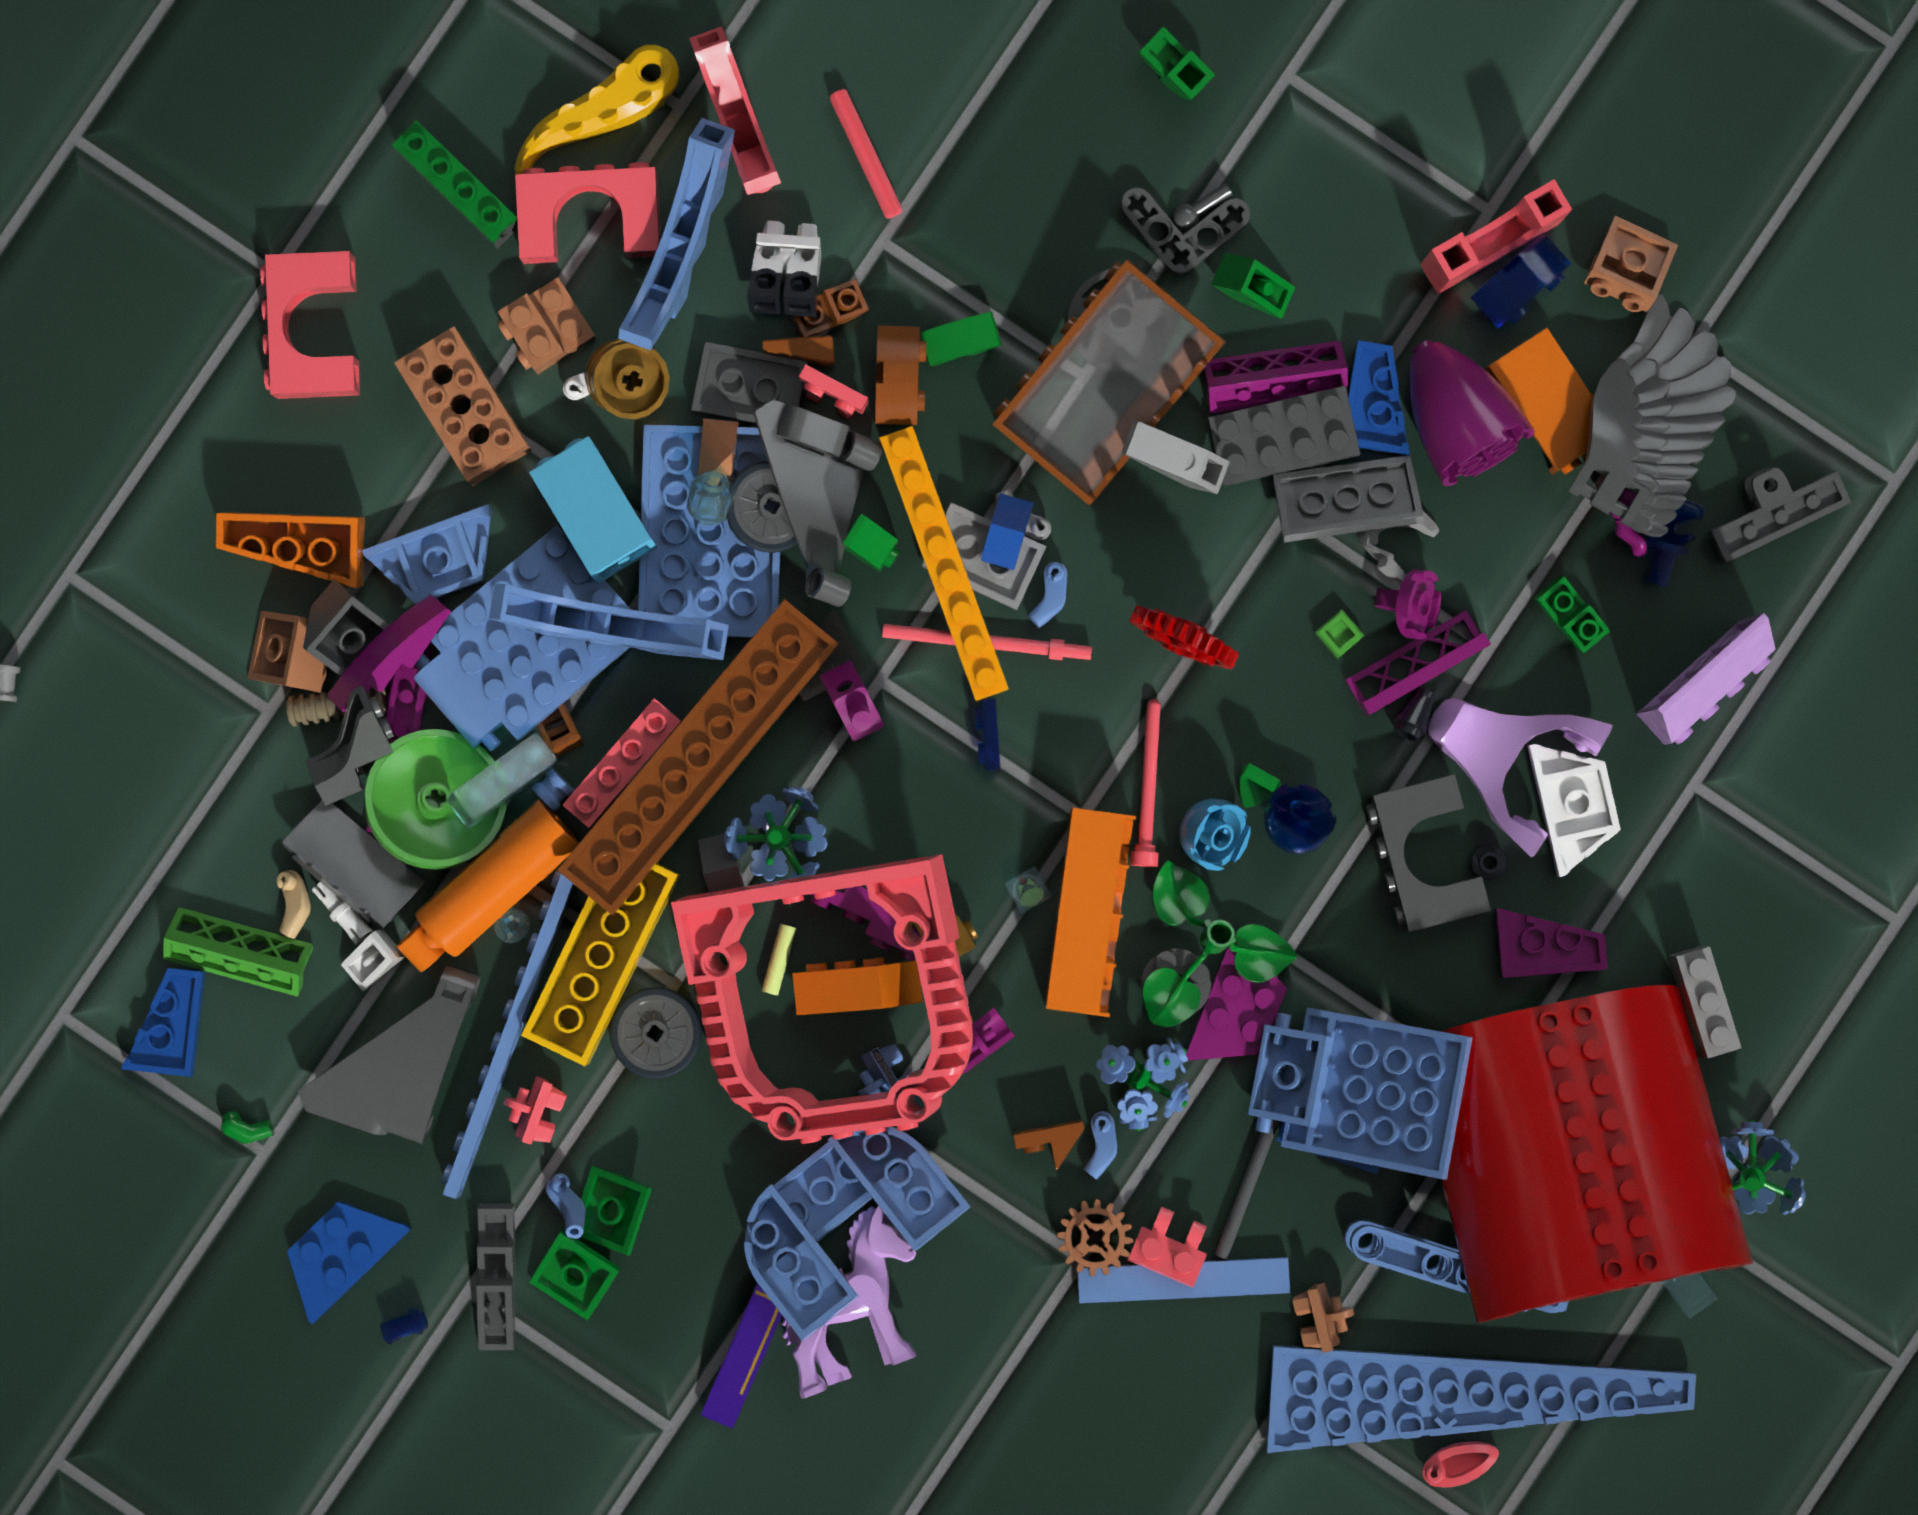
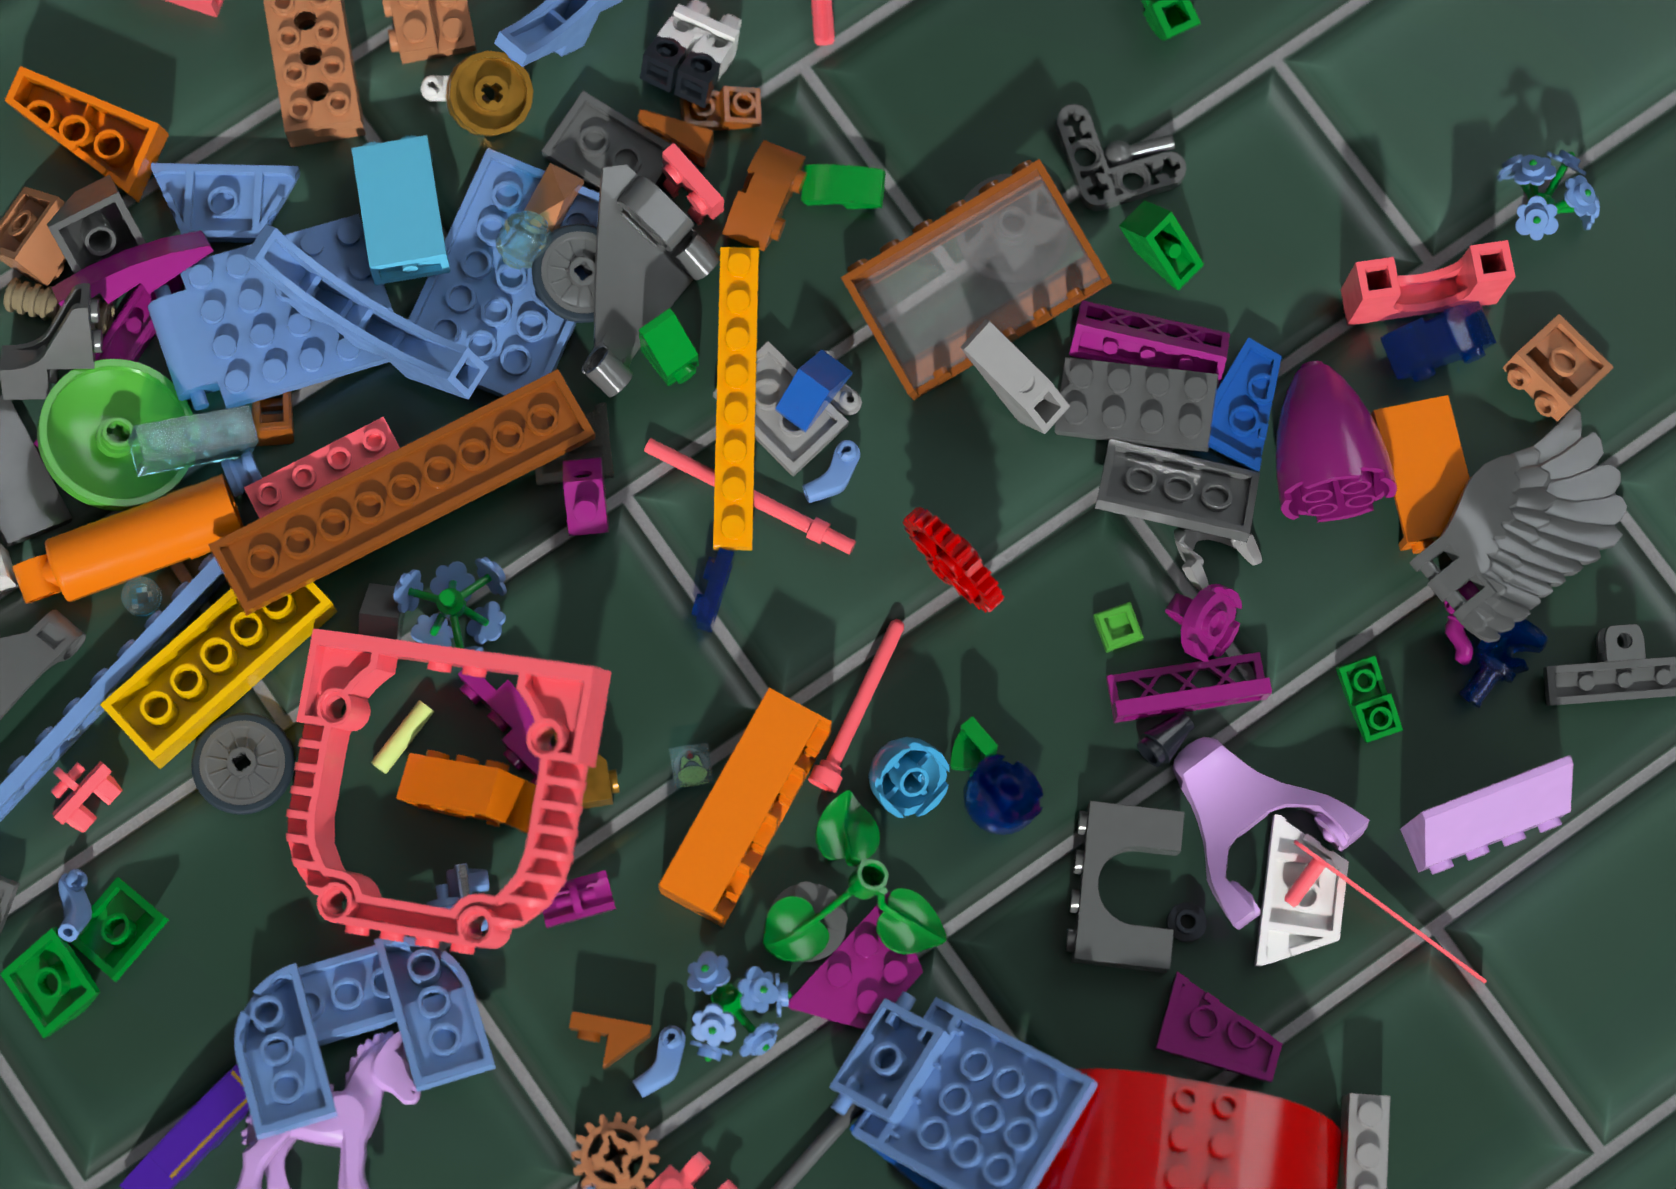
camera: 15 degrees right, 10 degrees down
(1569, 135) = (1540, 212): none -> medium blue plant
(1581, 776) = (1314, 870): none -> coral piece

